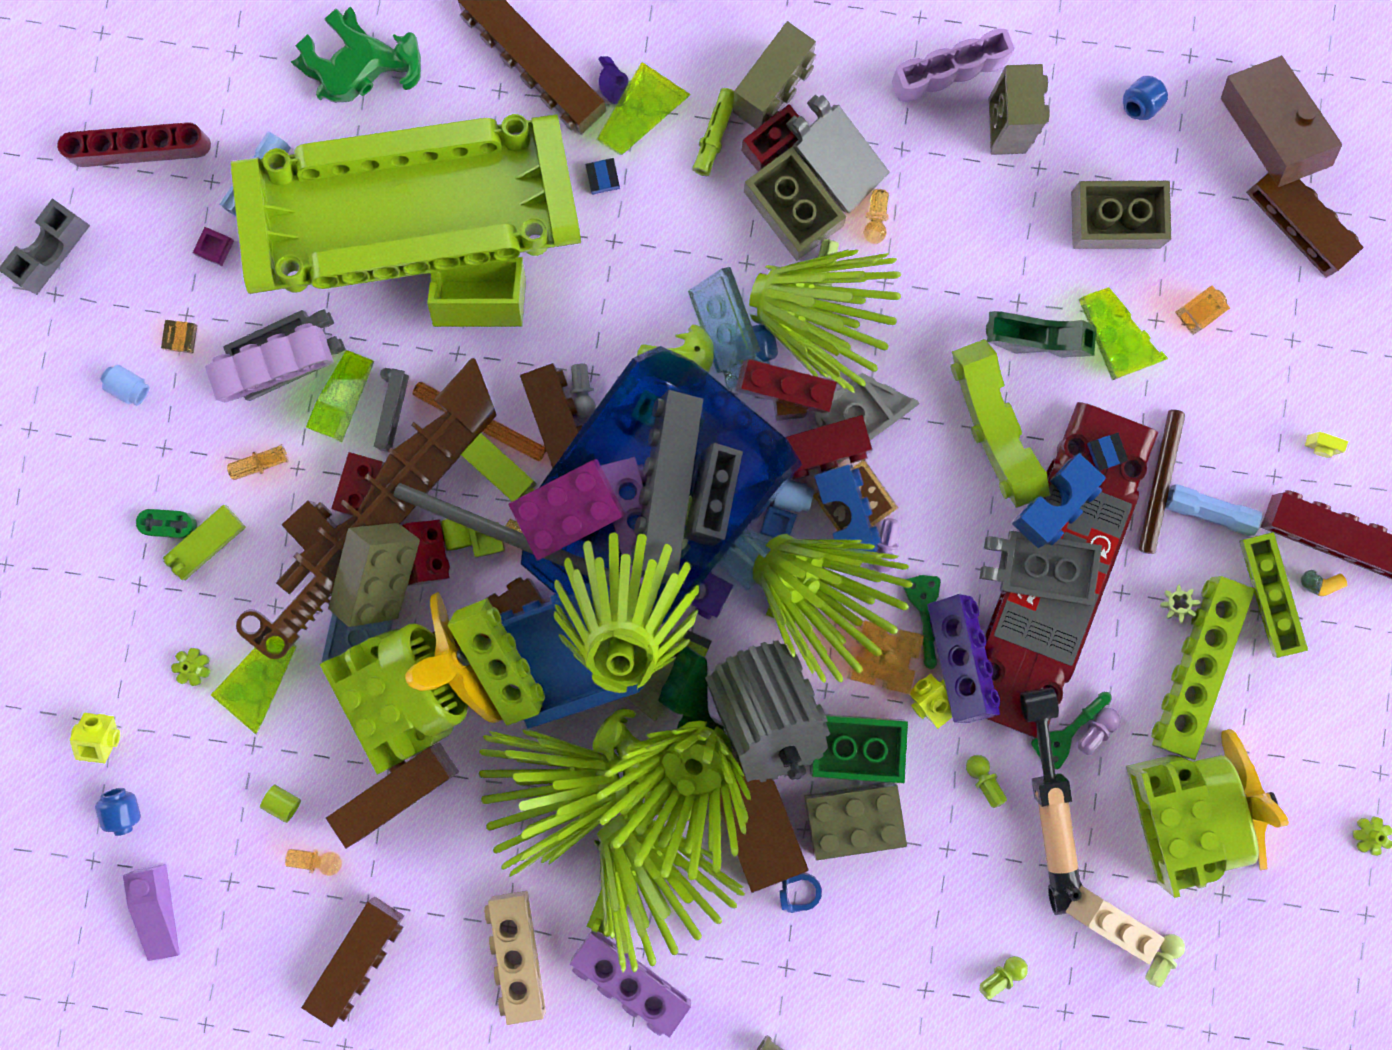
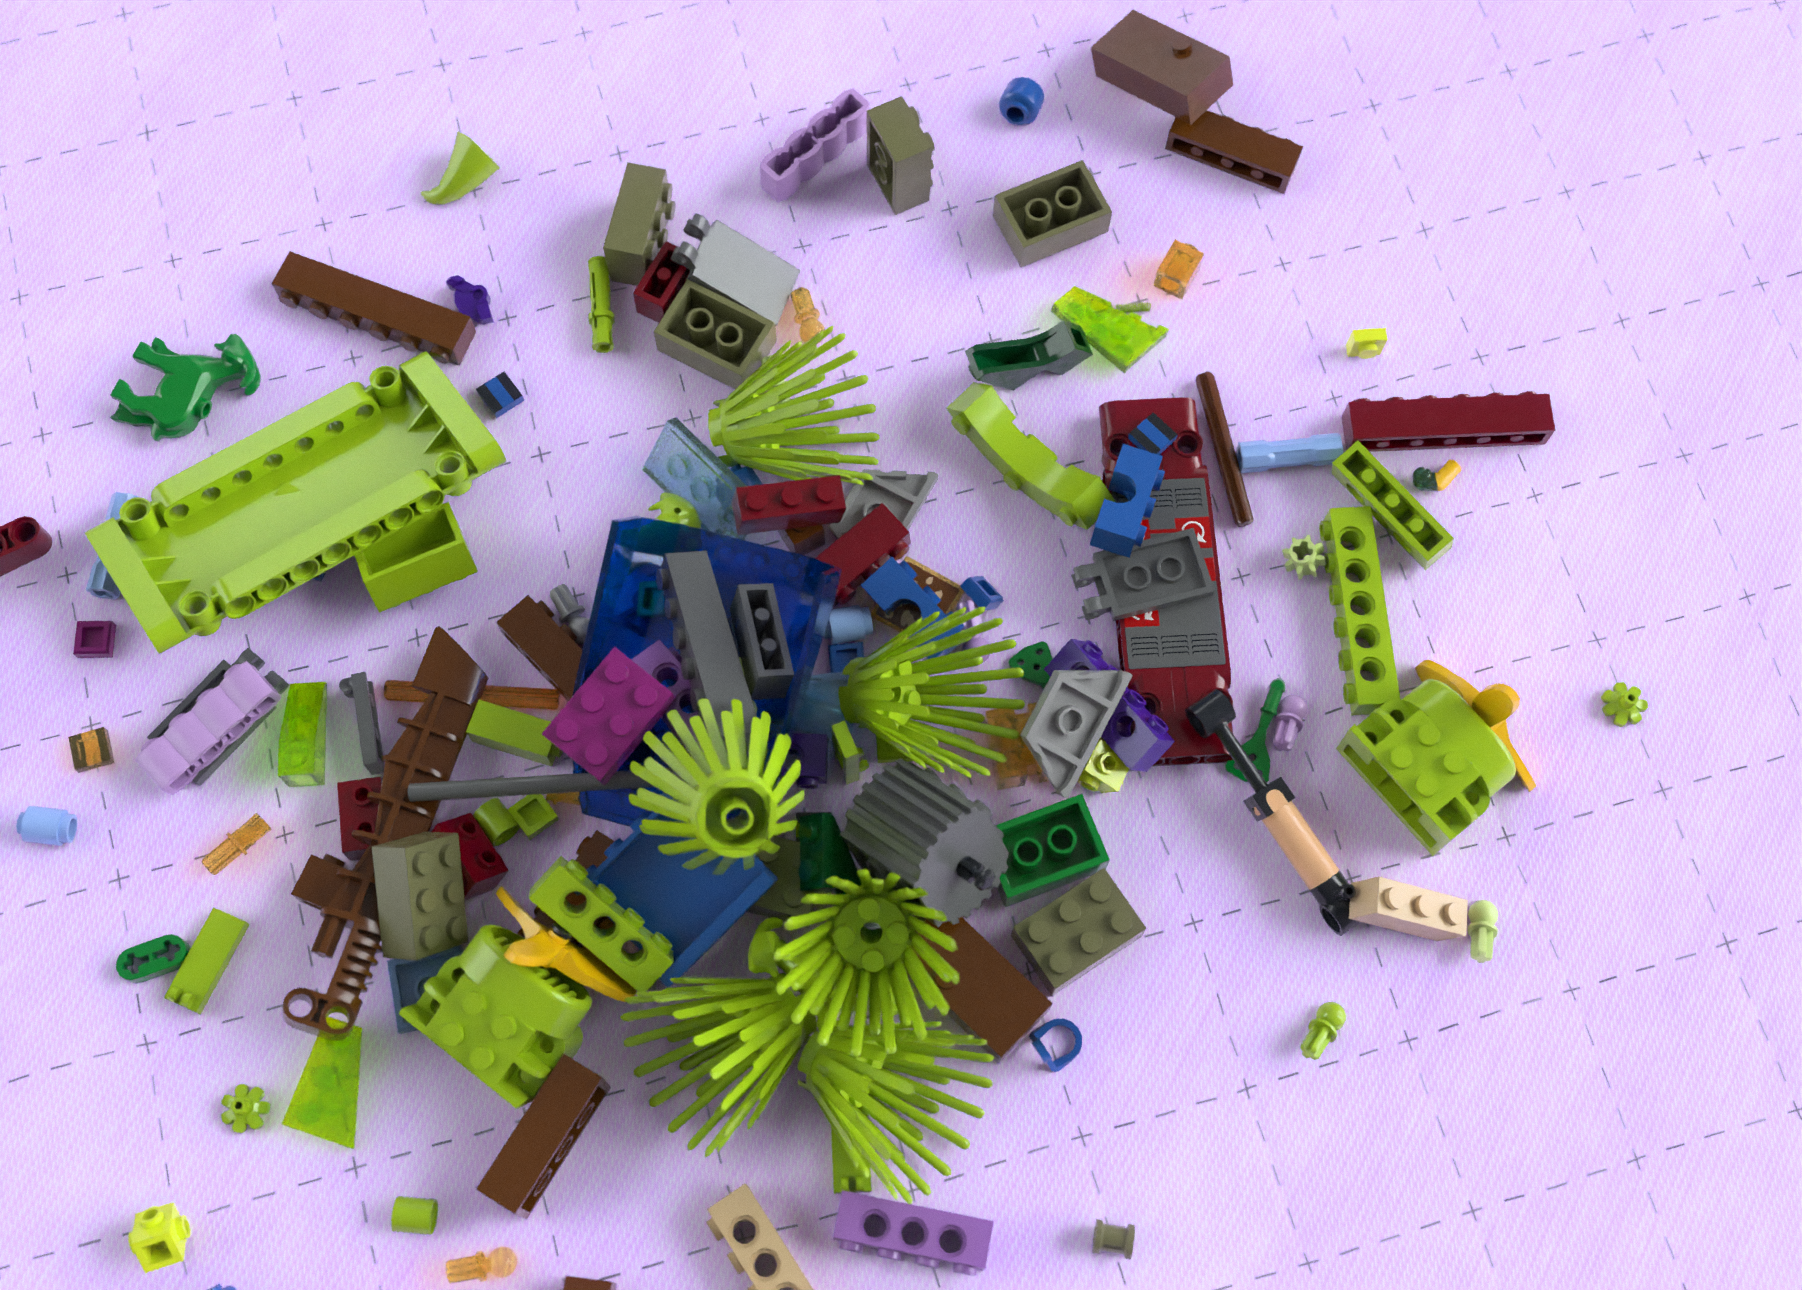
camera: 30 degrees left, 15 degrees down
(640, 108) = (511, 312): clear neon green wing -> none
(741, 606) = (847, 753): none -> lime hinge
(908, 517) = (982, 592): none -> blue tile
(926, 666) = (1071, 721): none -> light grey wing
(978, 768) = (1183, 820): lime axle -> none
(1149, 323) = (1122, 308): none -> lime leg

